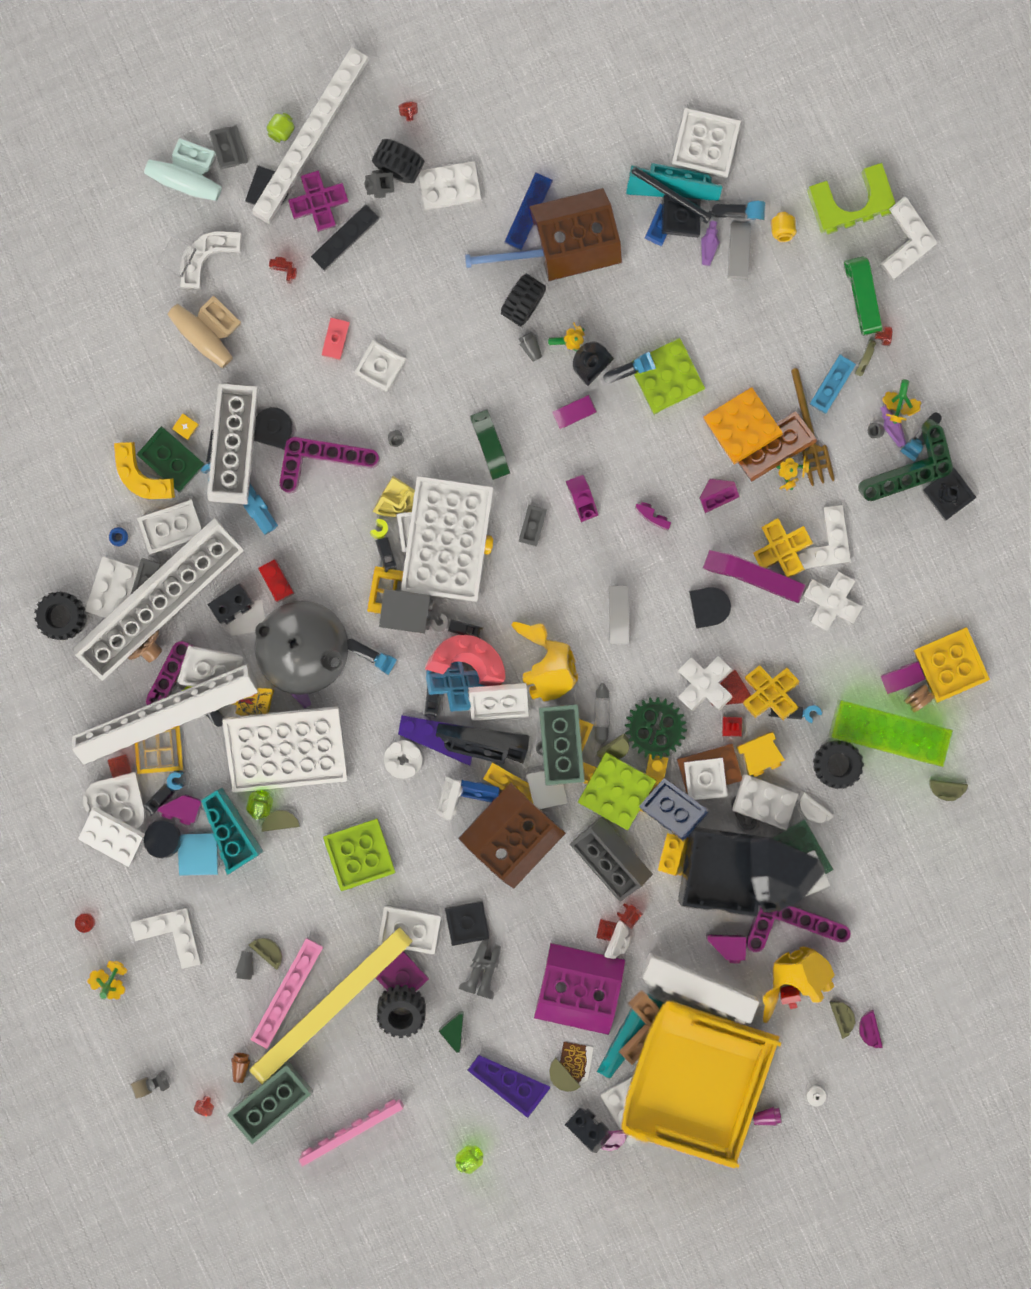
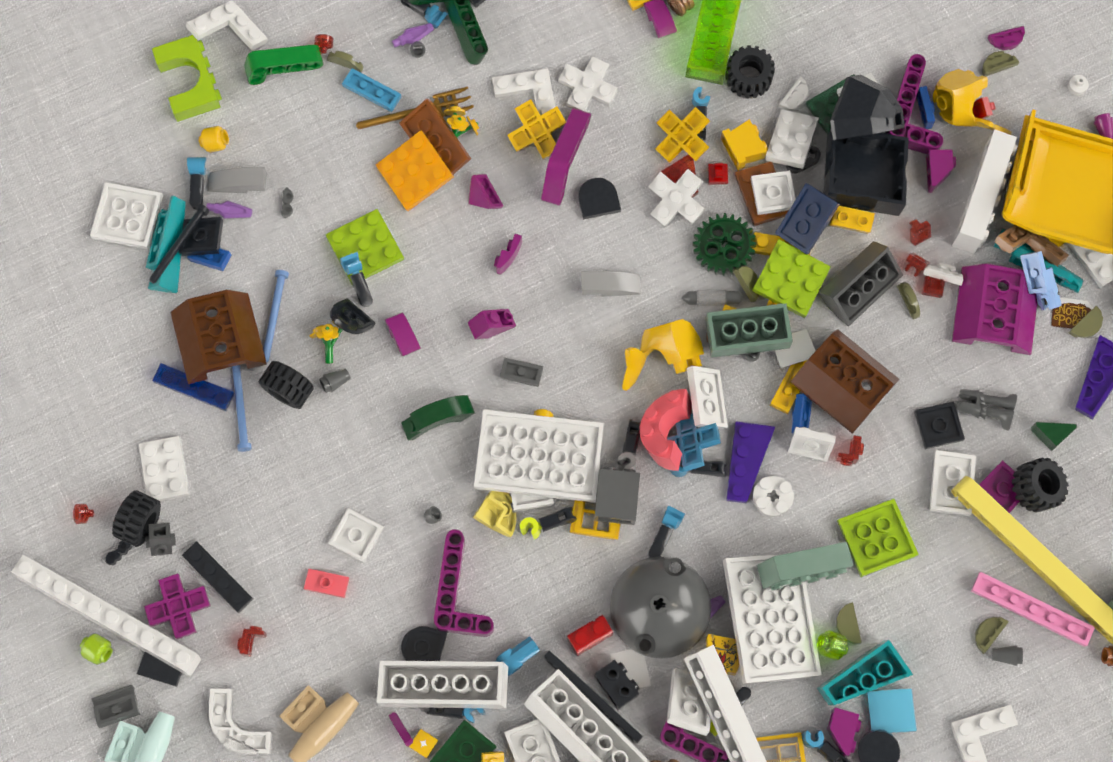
camera: 95 degrees left, 15 degrees down
(195, 407) = (404, 734): none -> magenta tile
(220, 581) = (607, 710): none -> black tile
(329, 782) = (805, 566): none -> sand green brick
(367, 140) = (114, 556): none -> black piece
(444, 840) = (856, 449): none -> clear red bracket
(484, 743) = (751, 411): black wedge -> none
(593, 905) = (909, 299): none -> olive tile
(601, 288) = (281, 276): none -> medium blue bar
(603, 1033) = (1040, 280): none -> light blue plate
(662, 920) = (919, 232): none -> clear red tile
(720, 300) = (287, 199): none -> dark grey piece
(794, 940) = (926, 107): none -> blue plate
(894, 401) = (393, 20): yellow plant -> none

